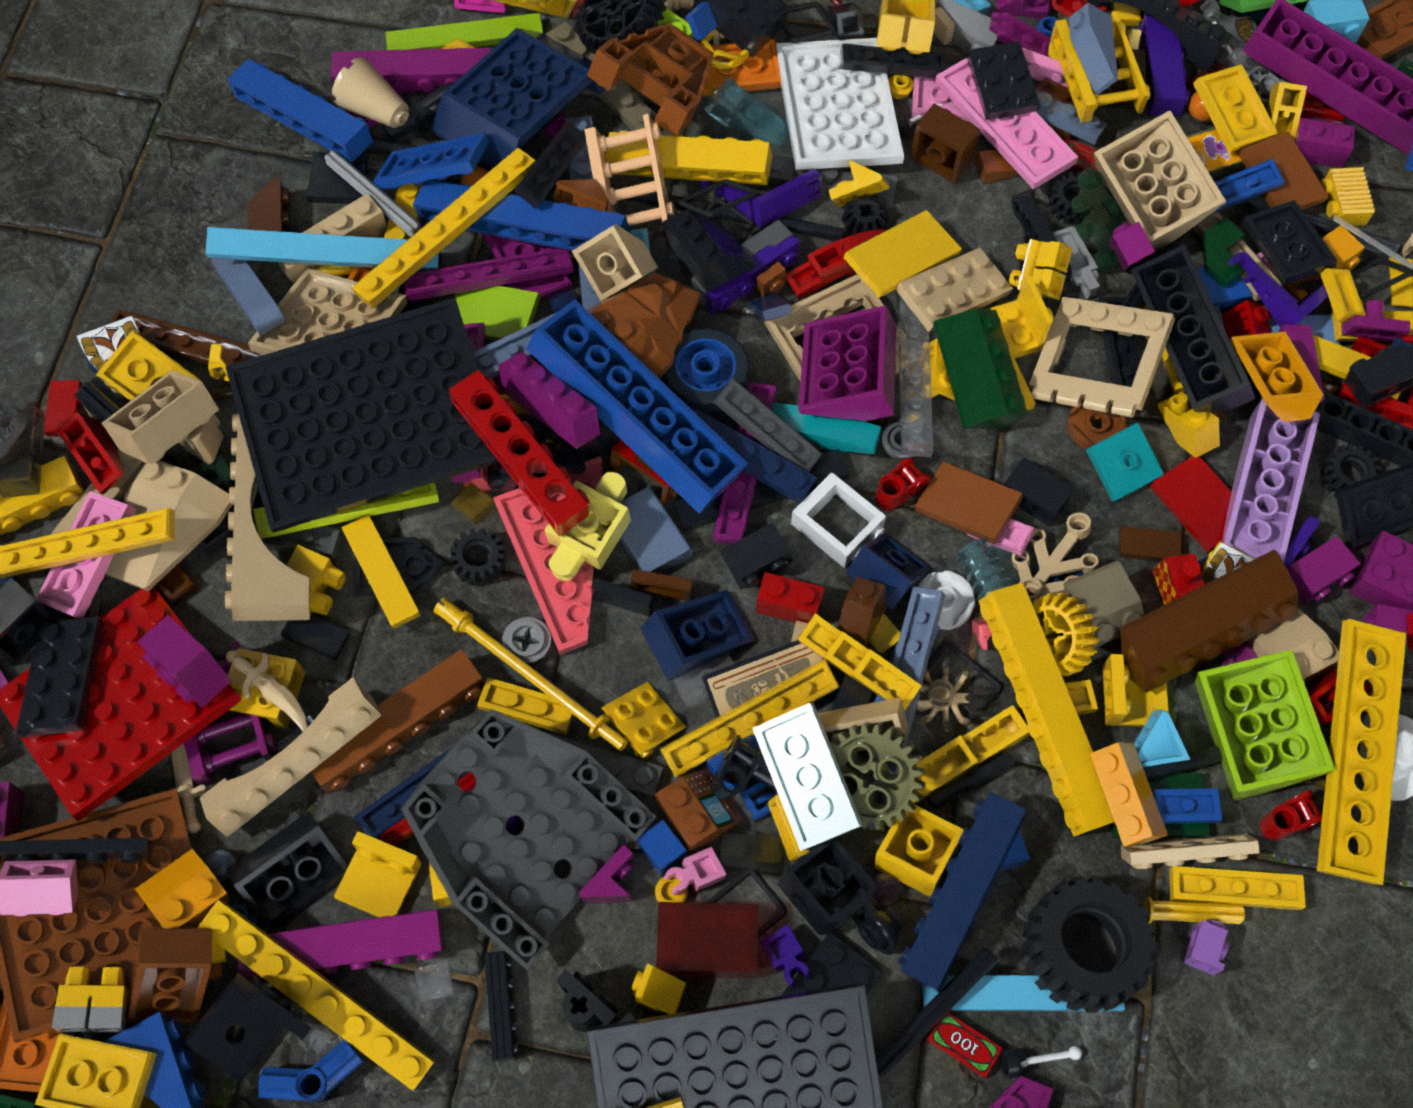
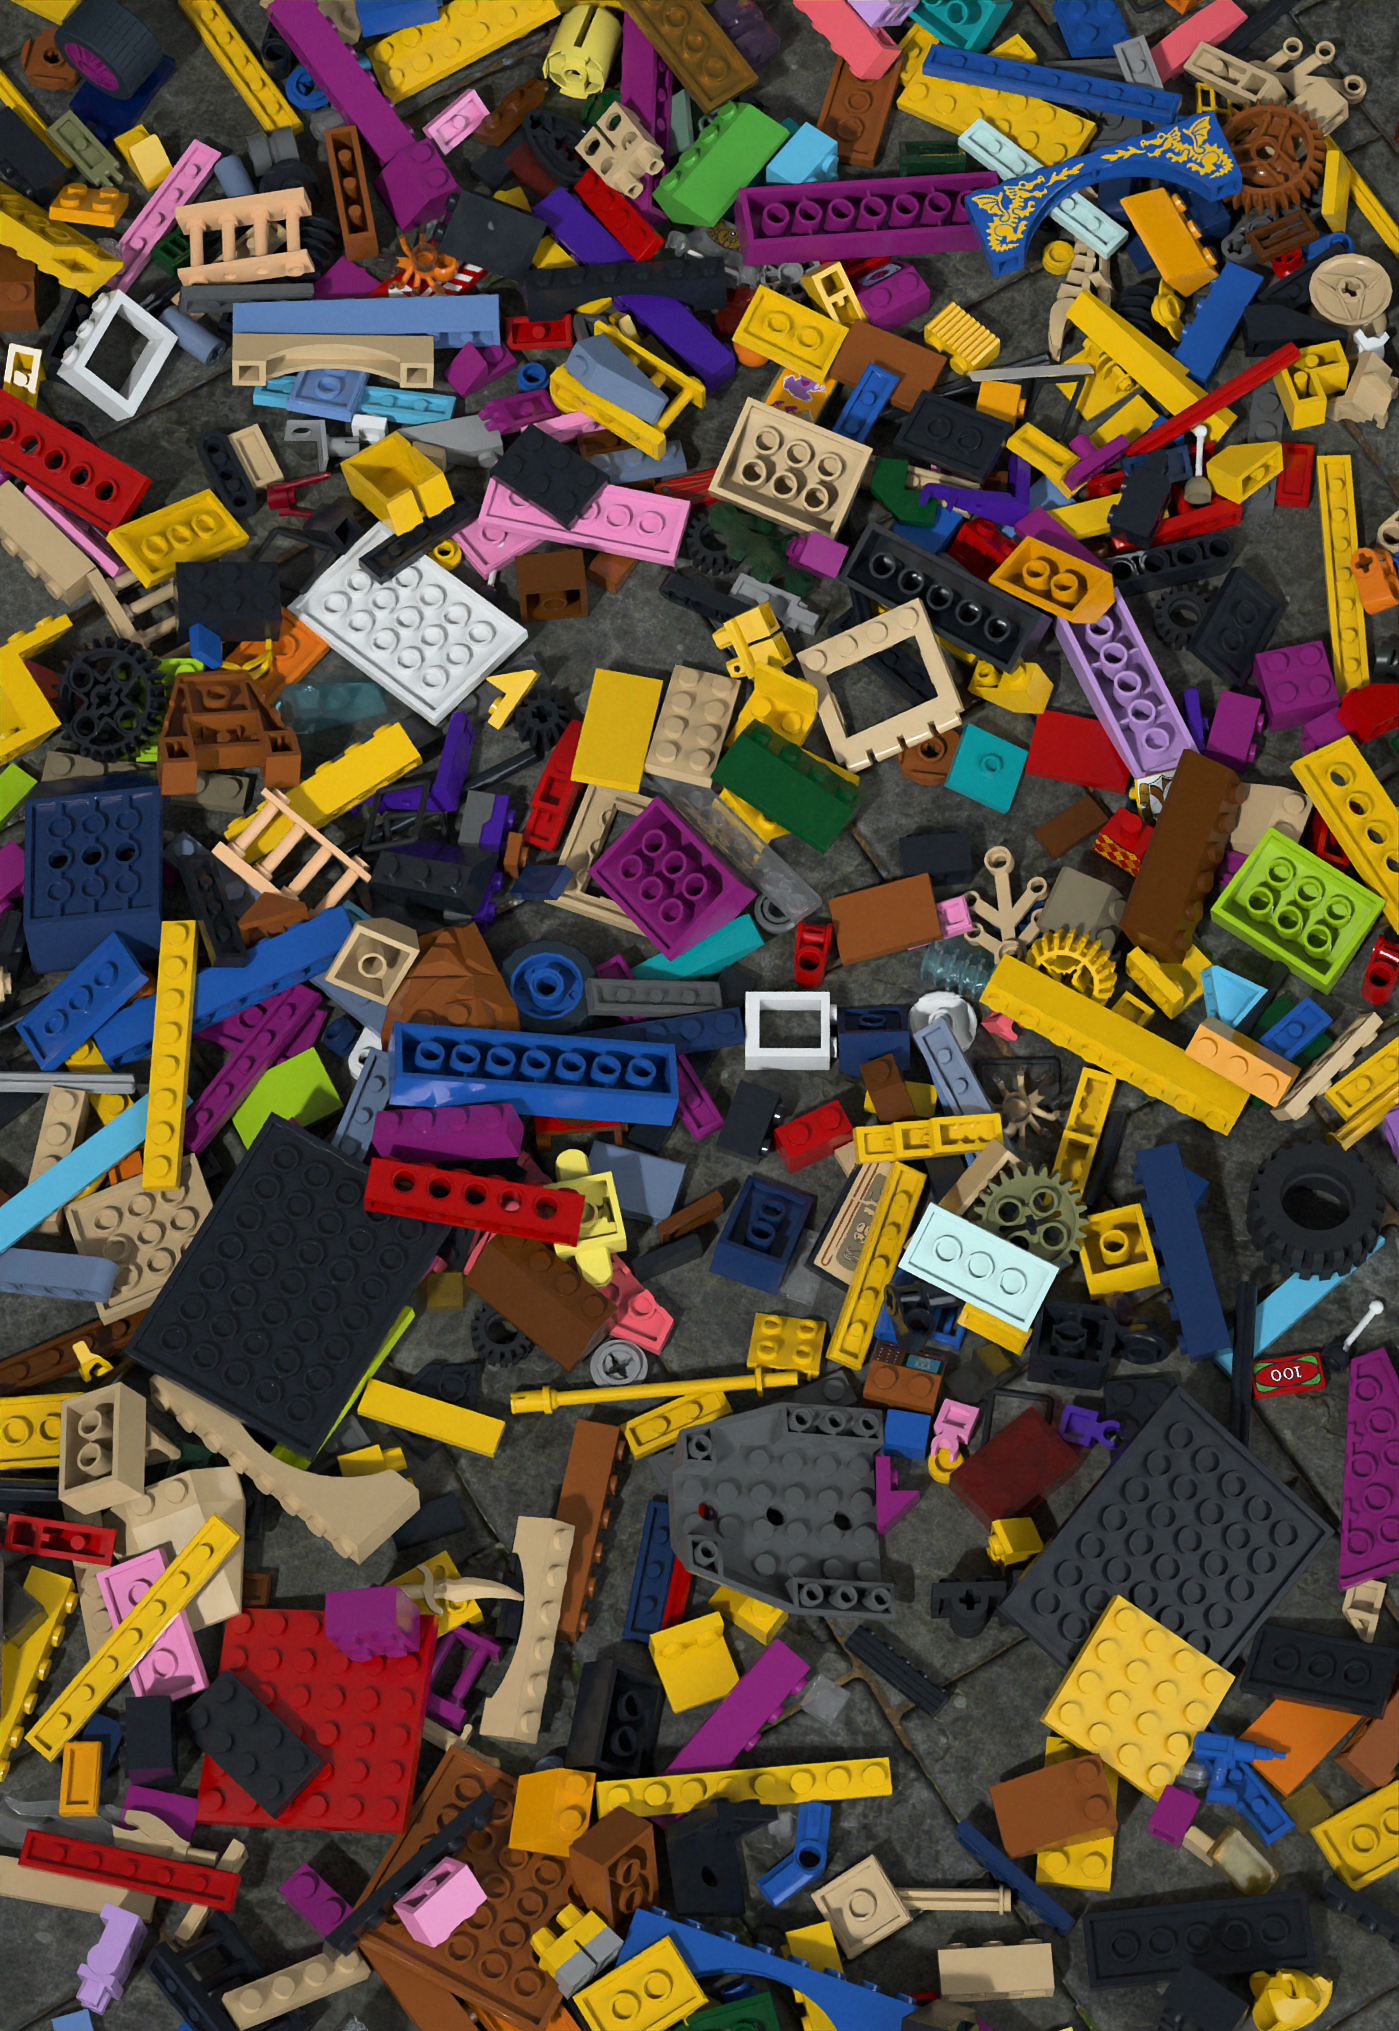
camera: 40 degrees left, 0 degrees up
(515, 555) = (542, 1298): none -> reddish brown slope

